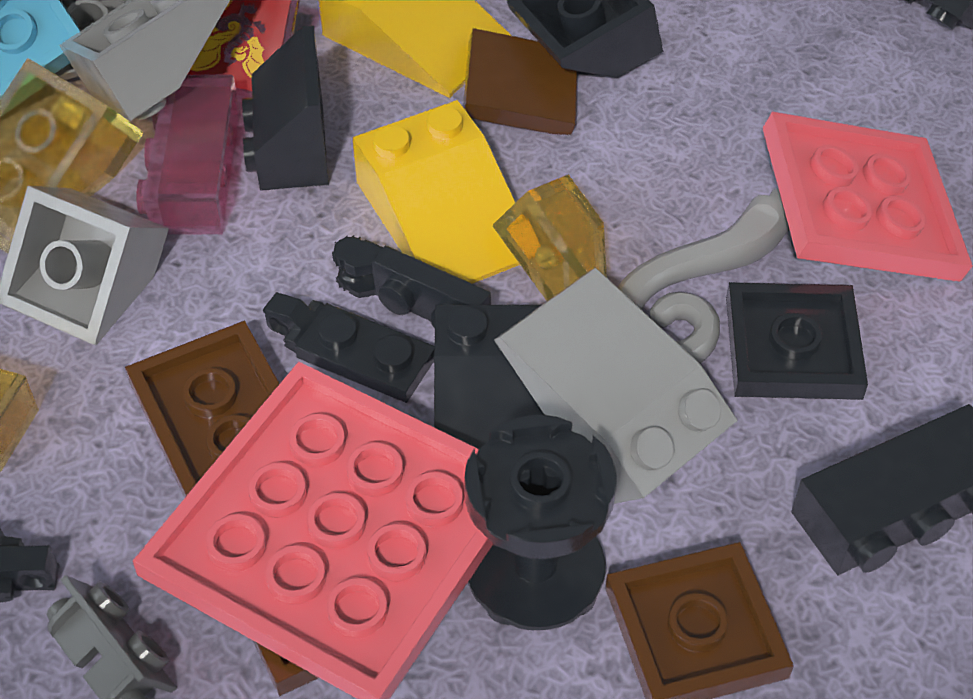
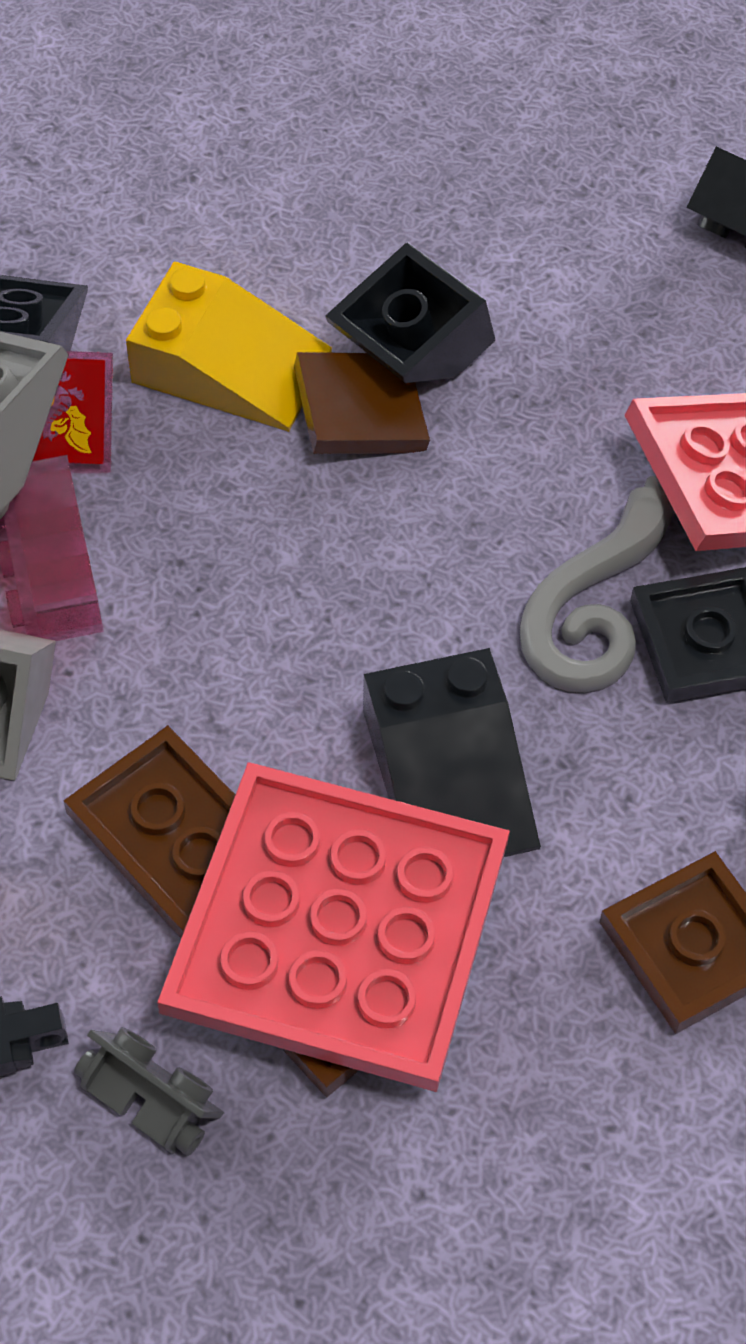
camera: 15 degrees left, 5 degrees up
(287, 118) = (139, 490): black slope -> none
(350, 345) = (278, 727): black hinge -> none
(400, 280) = (314, 650): black hinge -> none
(437, 191) = (323, 550): yellow slope -> none
(541, 505) = (541, 866): black piece -> none
(554, 235) = (459, 581): clear yellow slope -> none
(617, 378) = (563, 724): light grey slope -> none

